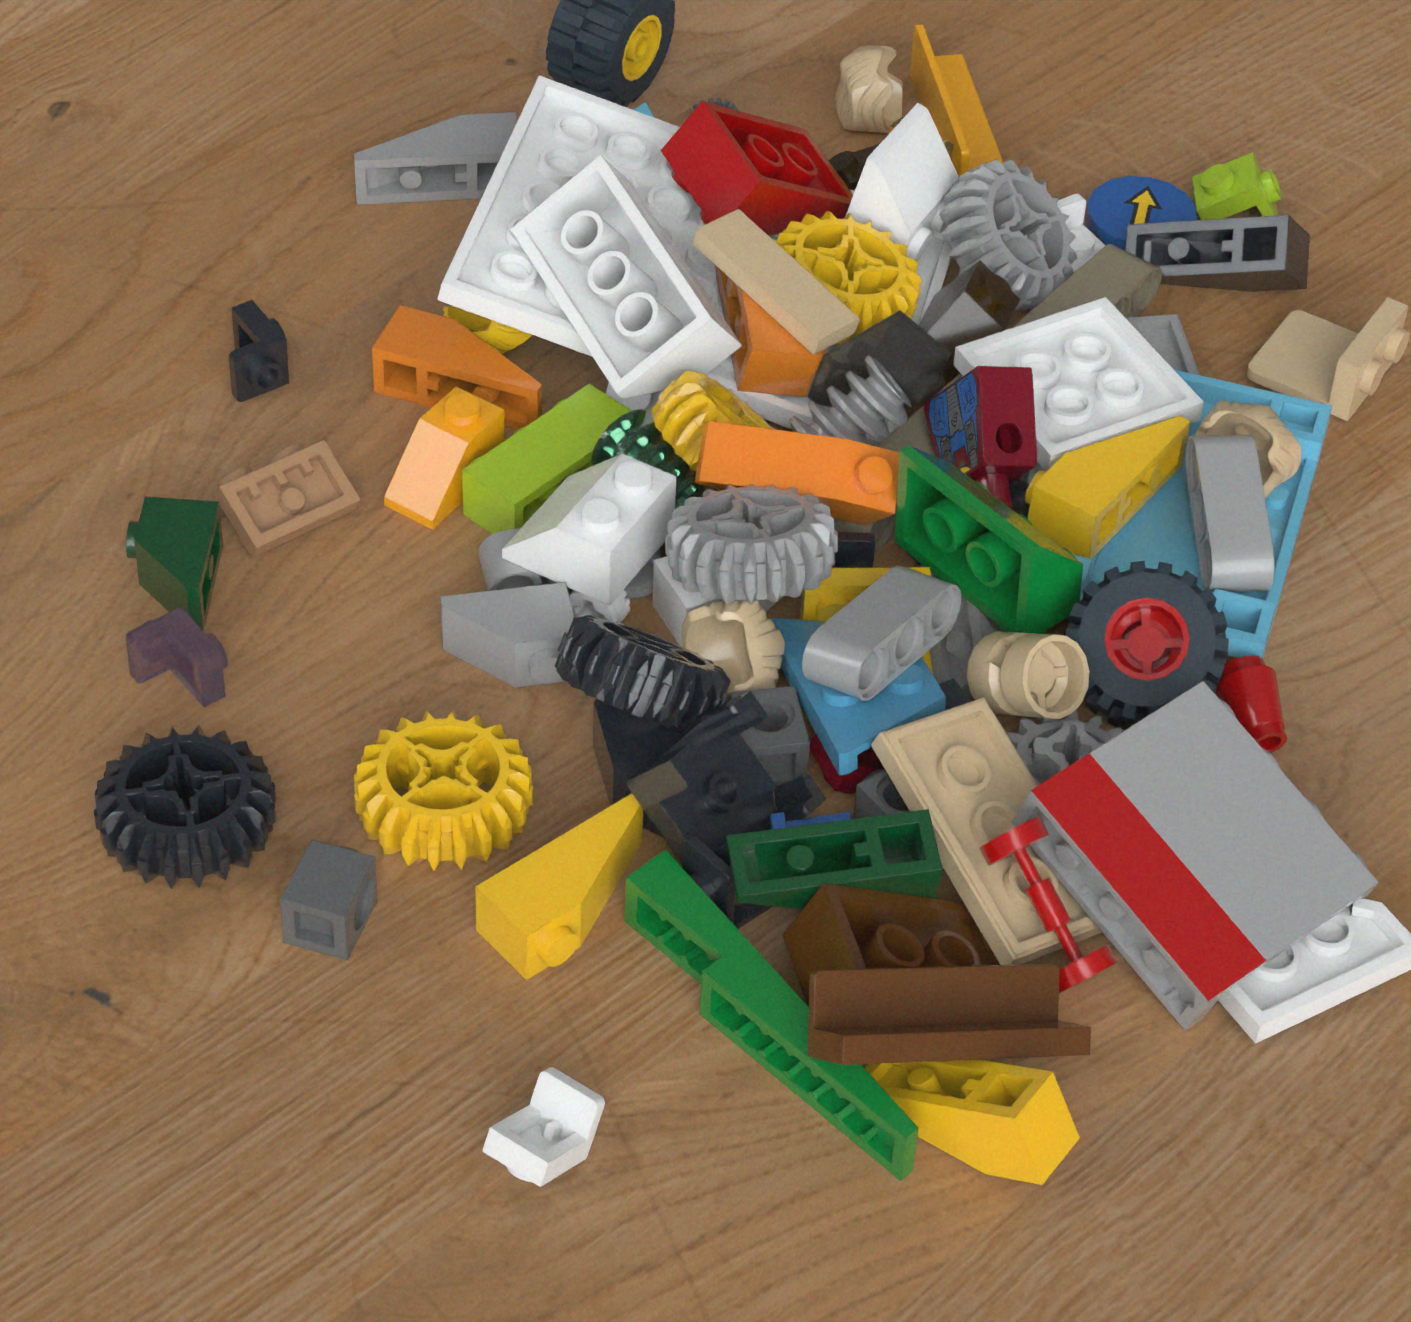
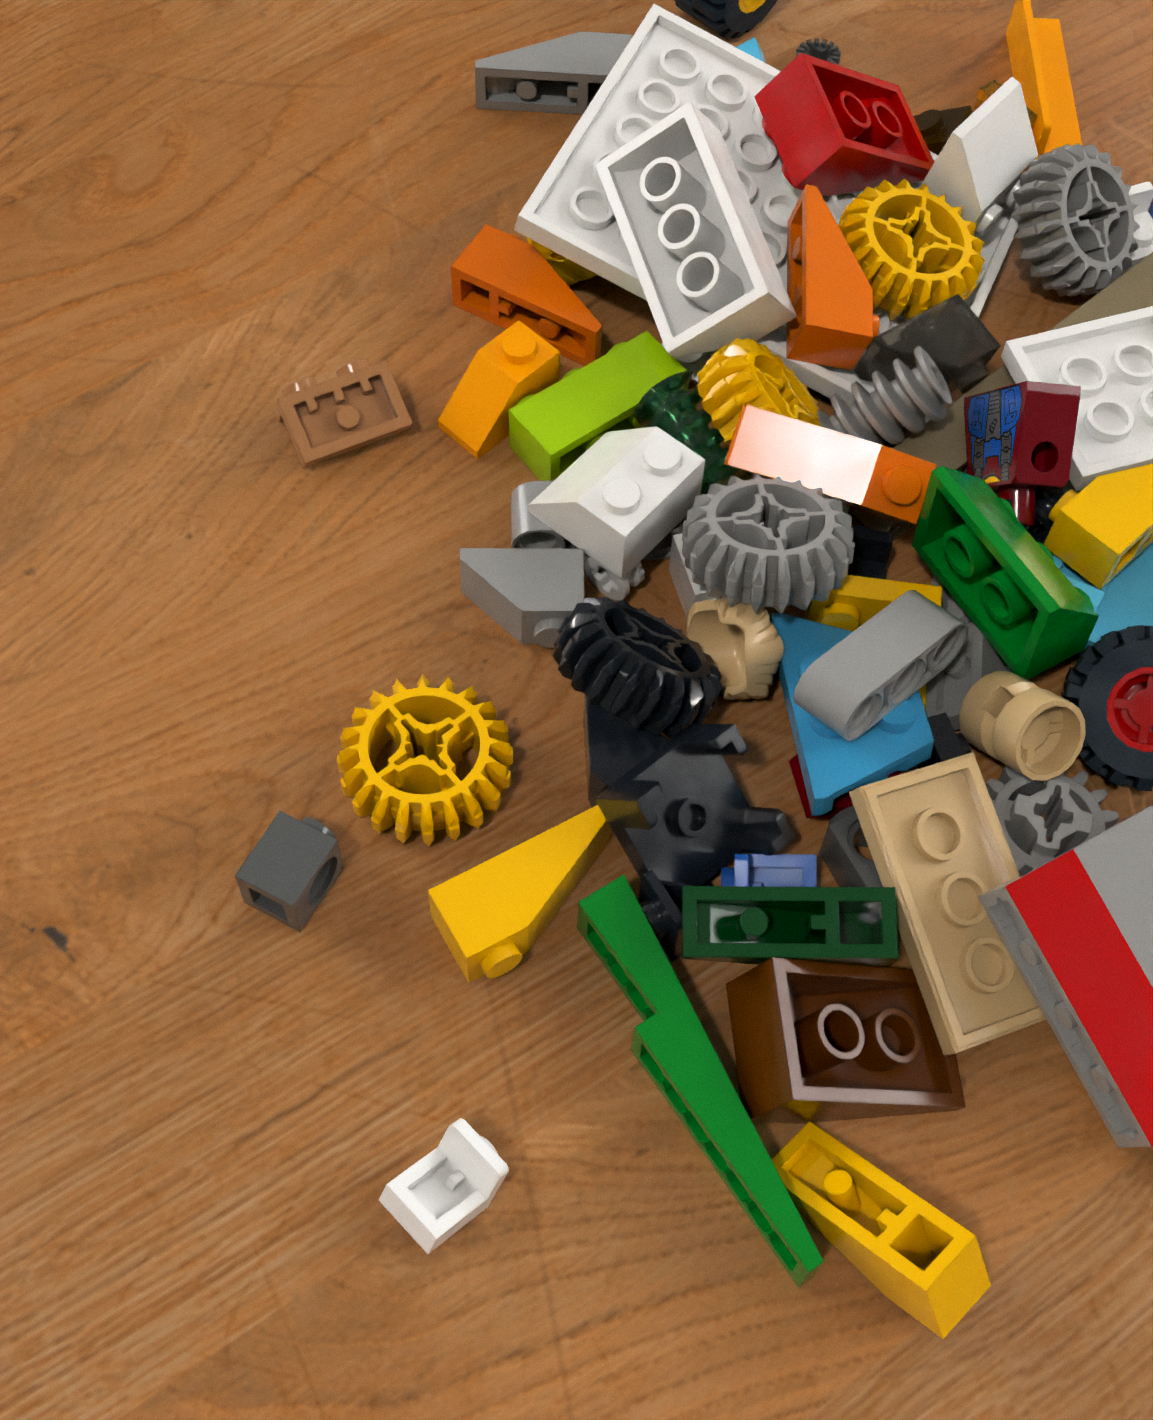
camera: 10 degrees right, 15 degrees up
(145, 814) = (203, 764): black gear -> none
(178, 552) = (232, 461): dark green slope -> none
(180, 646) = (203, 557): bracket -> none
(259, 353) = (352, 263): black bracket -> none
(776, 281) = (841, 254): tan tile -> none
(782, 738) = (763, 768): dark grey brick -> none
(867, 93) = (965, 49): tan hair -> none
(939, 1014) = (867, 1134): reddish brown panel -> none
(969, 310) = (1023, 300): dark brown slope -> none
(1046, 901) = (1021, 1069): red wheel -> none

